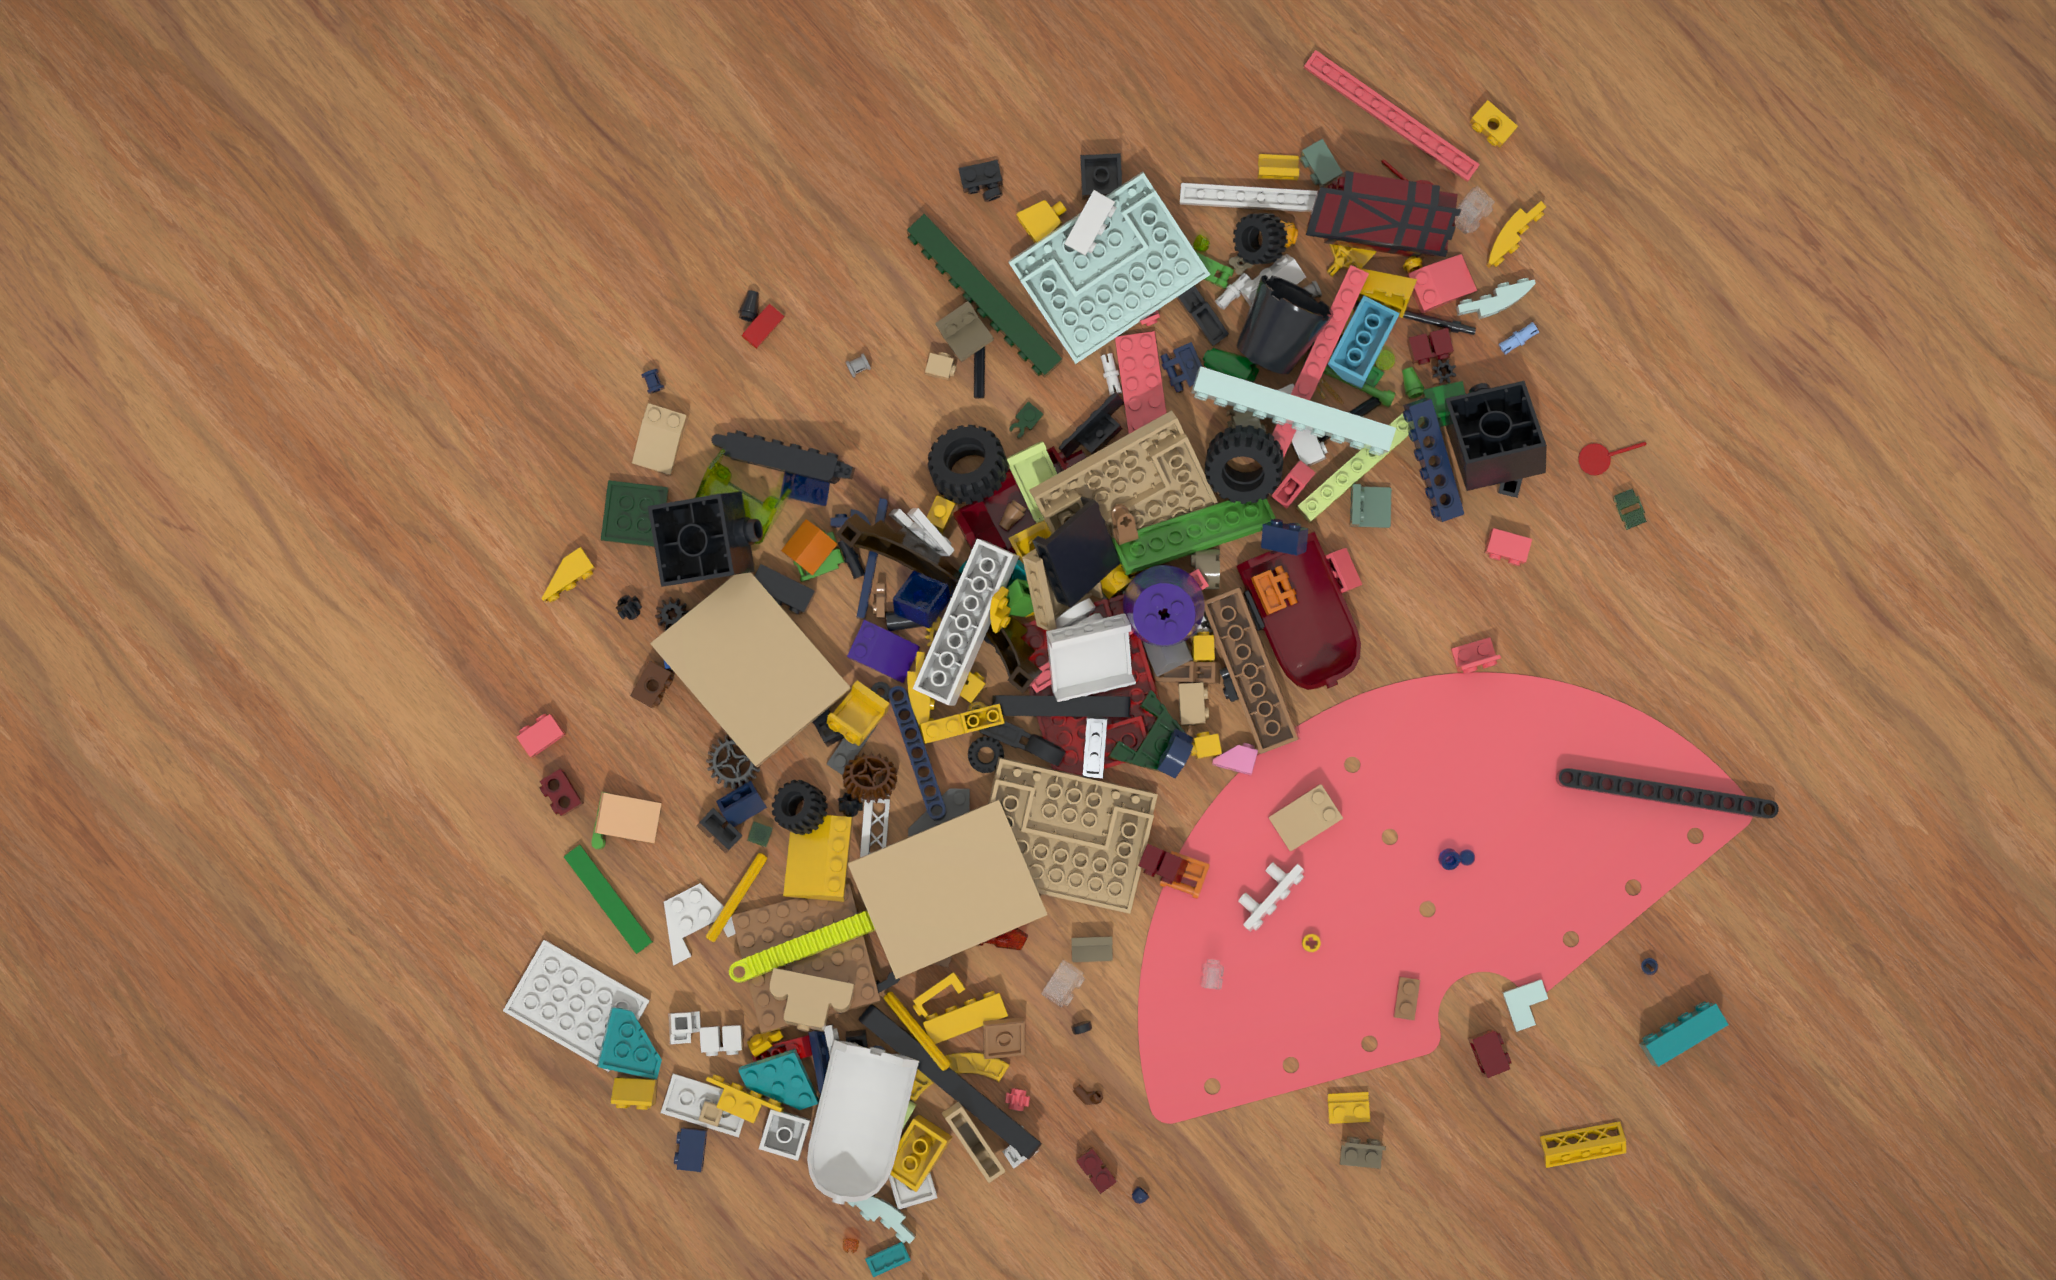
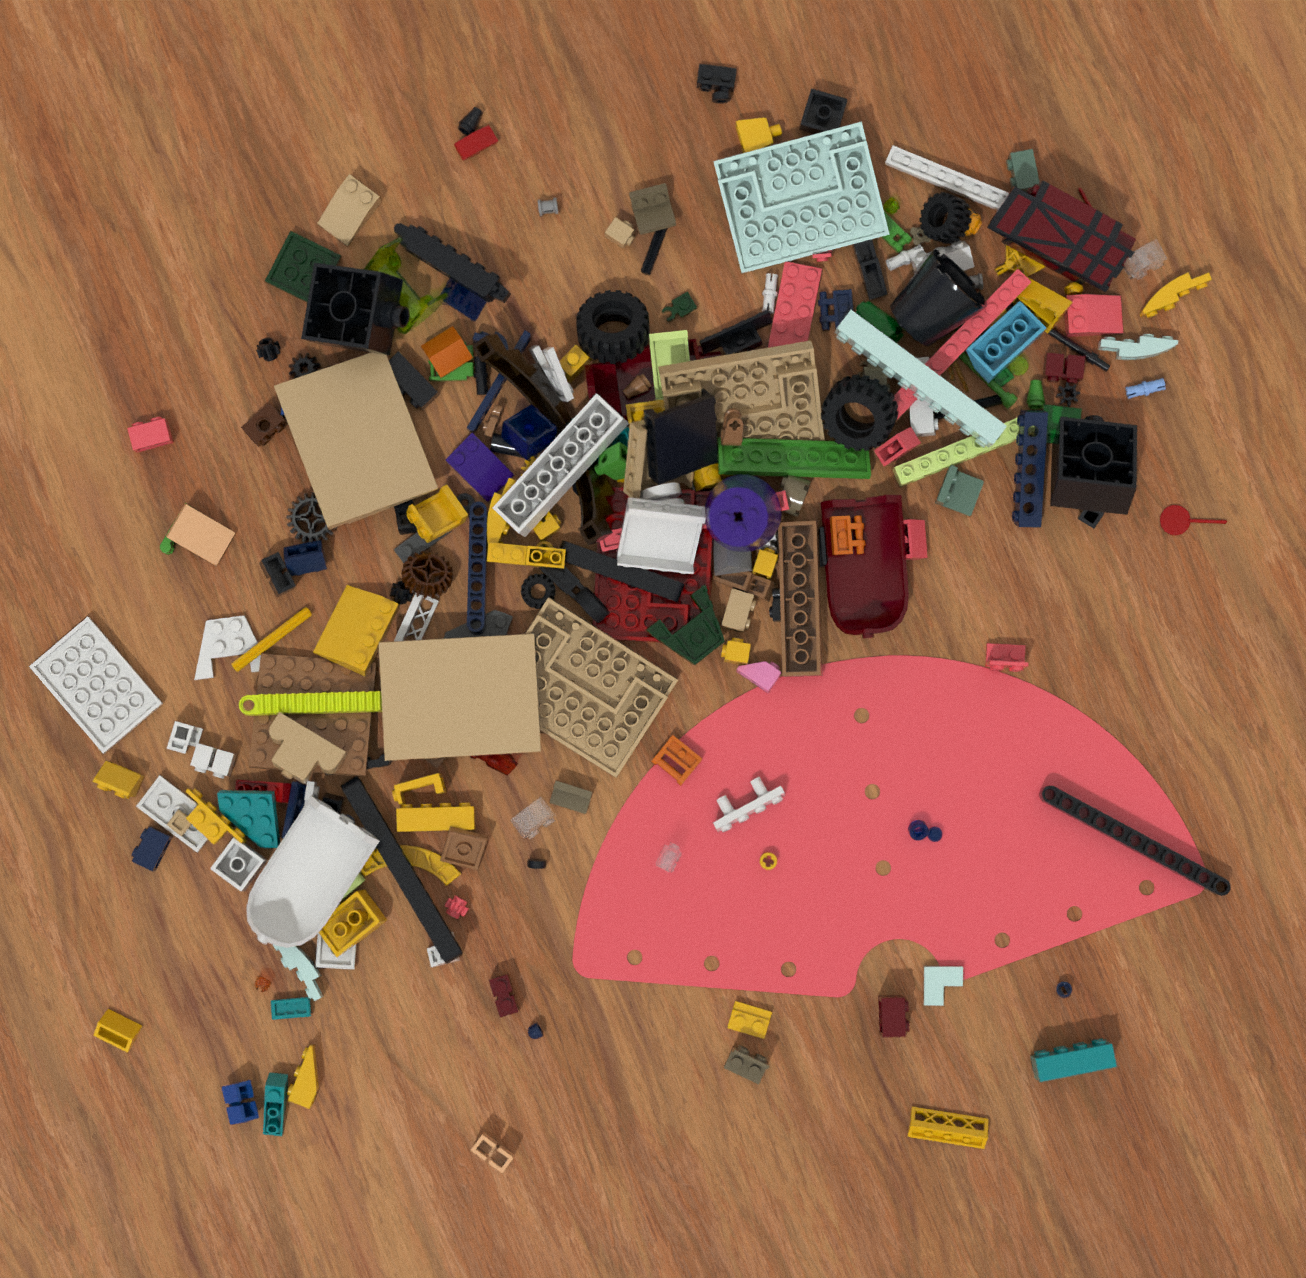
camera: 20 degrees right, 0 degrees up
(565, 789) = (154, 490): dark red brick -> none
(572, 569) = (228, 299): yellow slope -> none
(608, 899) = (158, 601): green tile -> none
(628, 1046) = (127, 737): teal plate -> none
(652, 381) = (361, 157): dark blue bush -> none
(760, 834) = (312, 591): clear green plate -> none
(762, 1042) = (249, 775): yellow plate -> none
(787, 802) = (363, 587): black tyre -> none
(917, 1031) = (388, 814): yellow axle -> none
(973, 1142) = (402, 930): tan brick -> none
(984, 296) = (681, 184): dark green brick -> none
(999, 611) = (593, 466): yellow slope -> none
(1088, 1098) = (521, 928): reddish brown arm -> none
(1090, 223) = (798, 150): white brick -> none
(1094, 747) = (636, 617): plate -> none
(1163, 864) = (661, 743): dark red piece -> none
(1176, 753) = (706, 648): dark blue brick -> none
(1278, 167) = (984, 162): yellow panel -> none
(1284, 537) = (872, 490): dark blue brick -> none
(1305, 817) = (803, 747): tan slope -> none
(1391, 116) = (1101, 151): coral plate -> none
(1406, 998) = (836, 940): medium nougat plate -> none
(1489, 113) = (1190, 179): yellow brick -> none
(1508, 546) = (1070, 570): coral brick -> none
(1626, 500) = (1193, 584): clear green piece -> none

